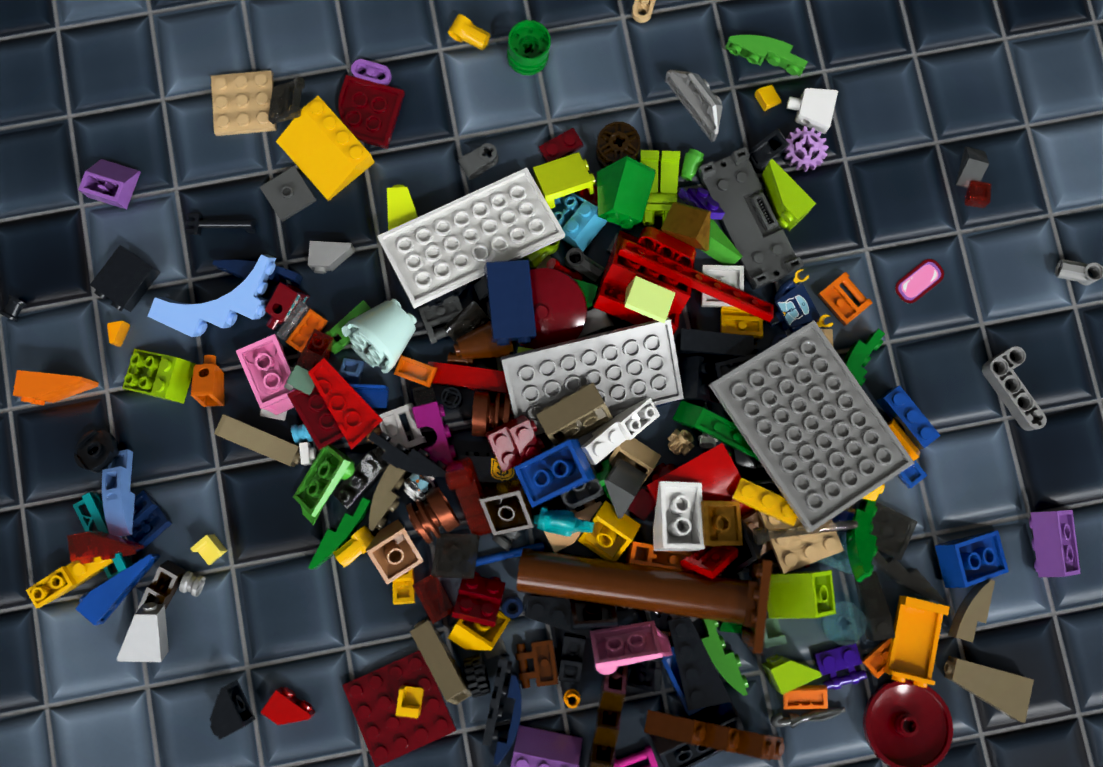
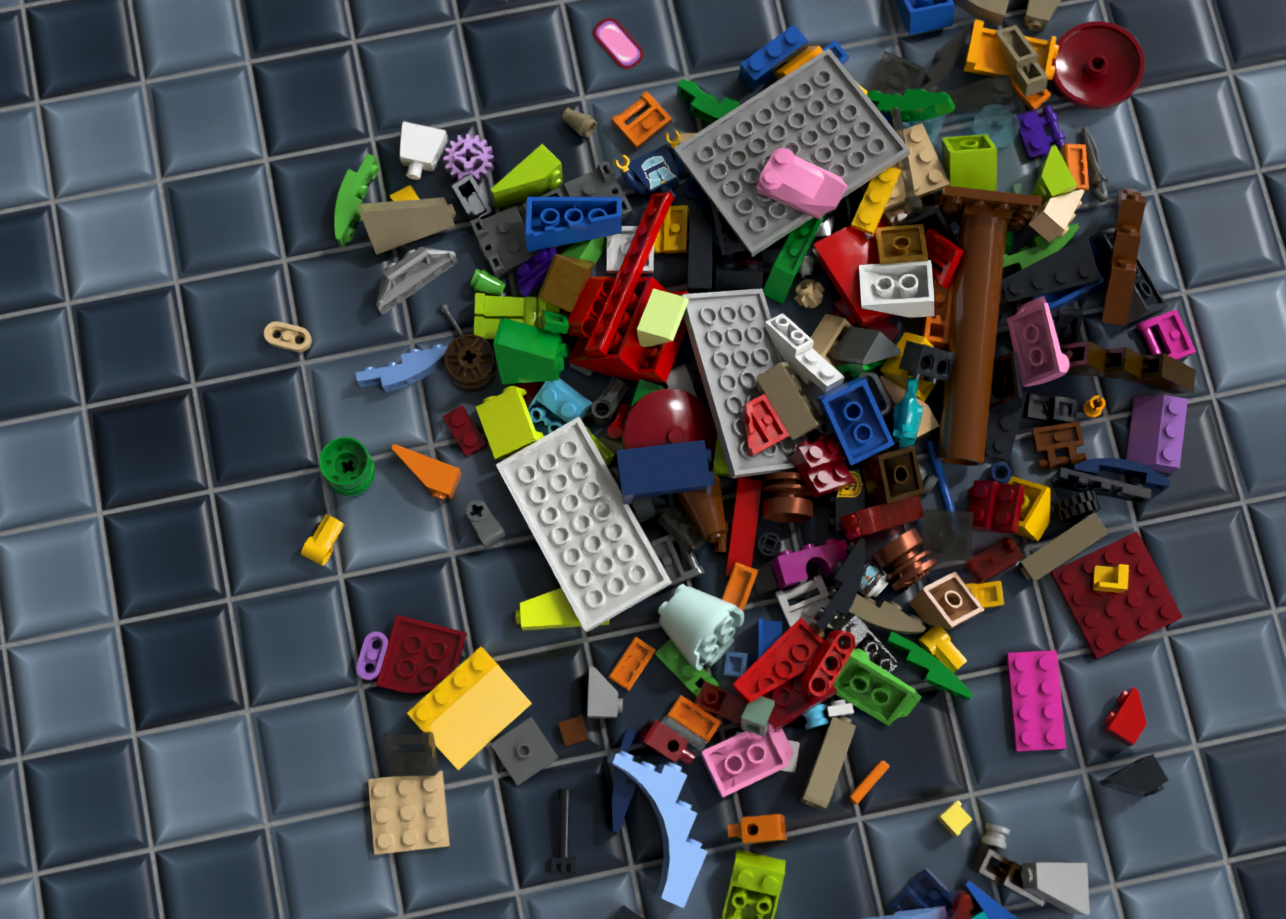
camera: 90 degrees left, 5 degrees down
(244, 476) = (868, 782): none -> orange tile
(302, 233) = (573, 731): none -> reddish brown tile
(308, 627) = (1036, 701): none -> dark pink plate
(328, 440) = (839, 658): none -> red beam
(355, 281) = (632, 664): none -> orange plate
(523, 116) = (433, 474): none -> orange slope
(548, 387) = (762, 425): none -> wing
(608, 540) = (927, 361): none -> black brick
(614, 100) = (415, 367): none -> medium blue slope
(652, 215) = (554, 322): none -> green plate
(669, 130) = (444, 308): none -> dark grey hinge
(745, 92) = (405, 221): none -> dark tan slope
(745, 227) = (570, 220): none -> blue wedge
(753, 672) = (1056, 214): none -> tan slope
(776, 428) = (800, 184): none -> bright pink slope
(840, 246) = (581, 123): none -> dark tan cone
(909, 650) = (1021, 60): none -> dark tan slope

